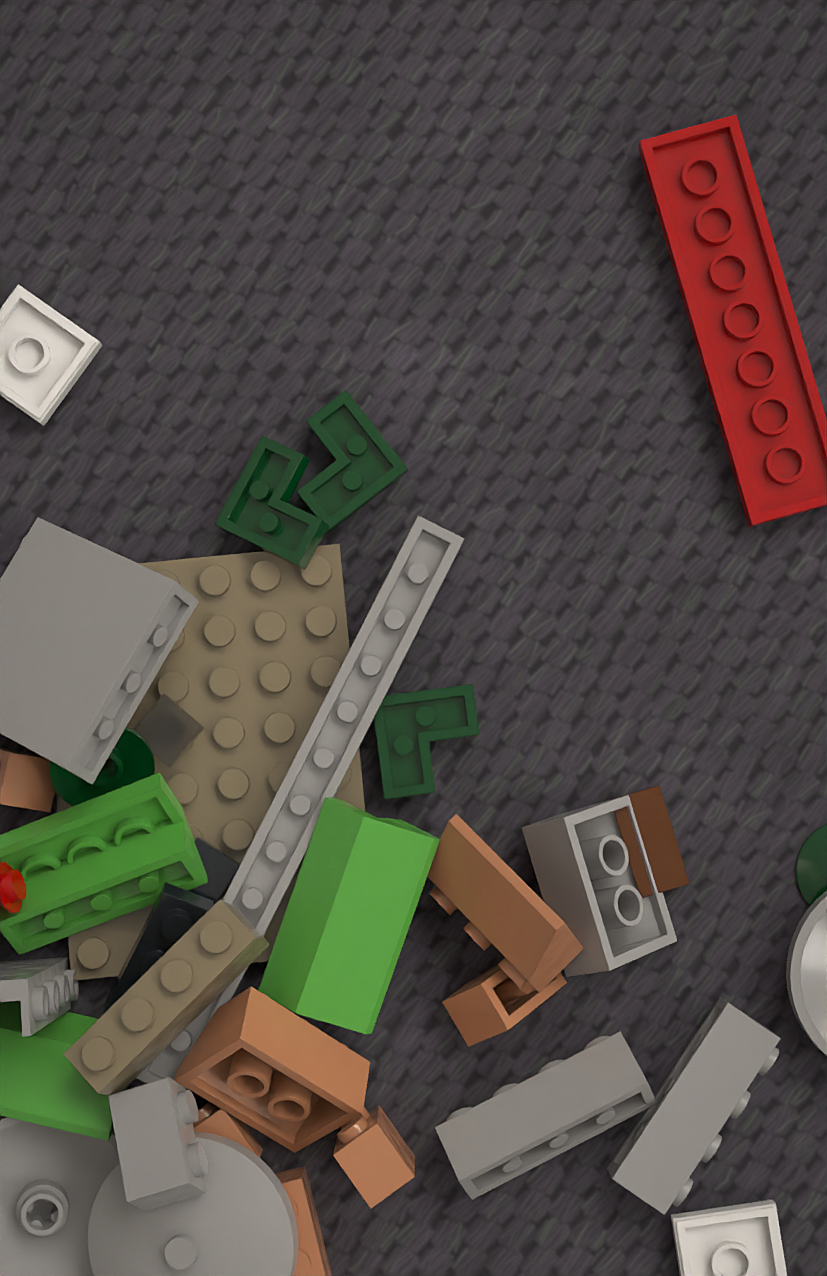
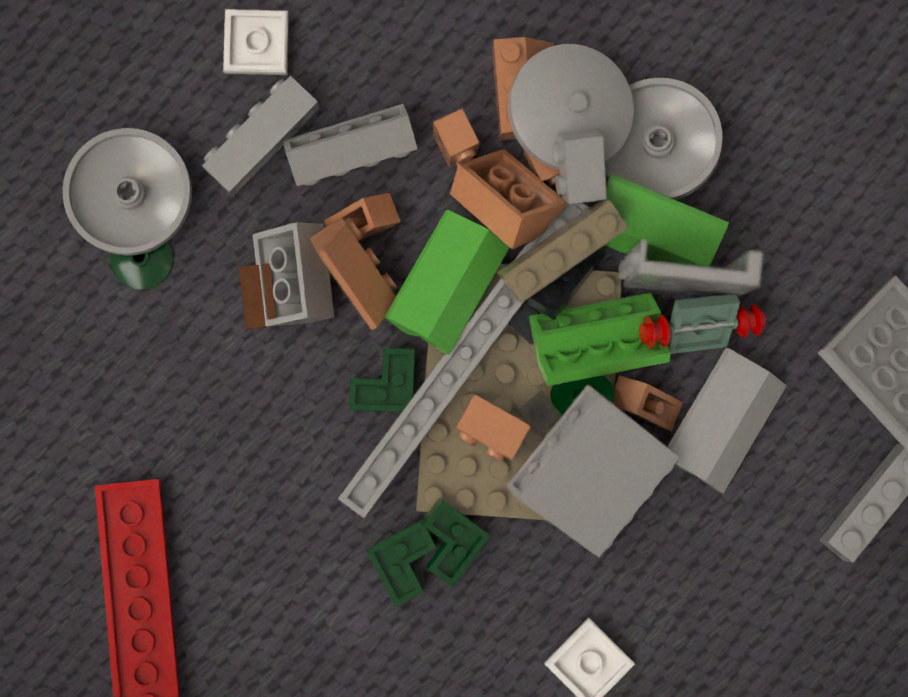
camera: 175 degrees right, 0 degrees up
(238, 691) = (492, 428): none -> nougat brick

